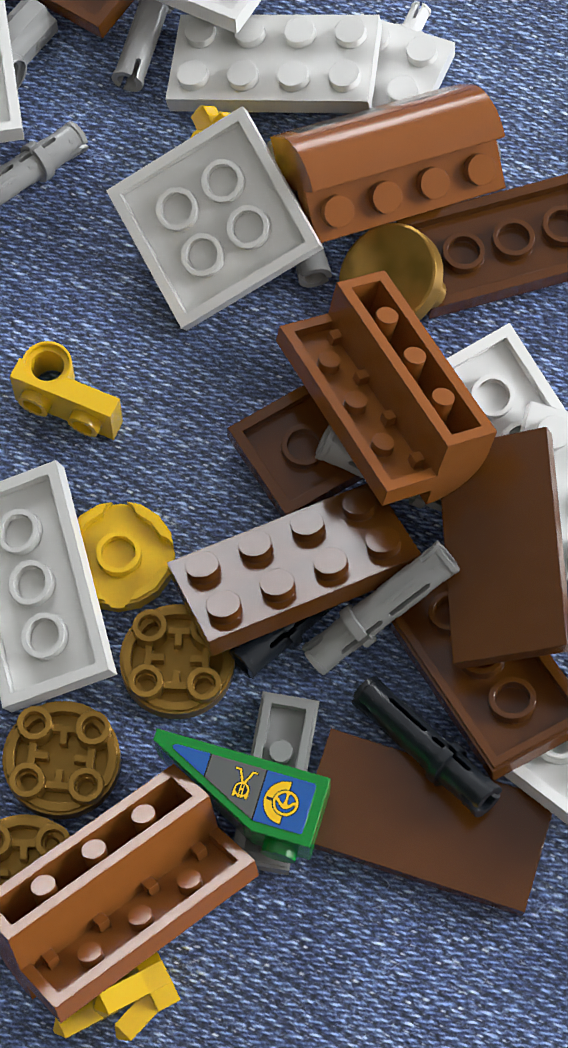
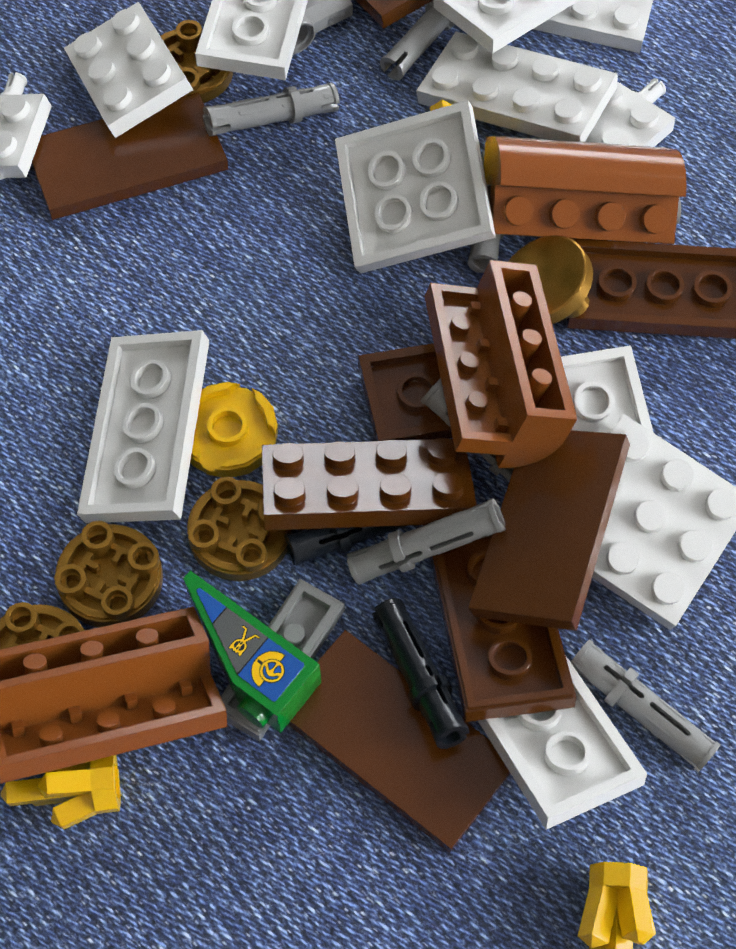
camera: 20 degrees right, 5 degrees down
(82, 406) = (235, 287): yellow plate -> none

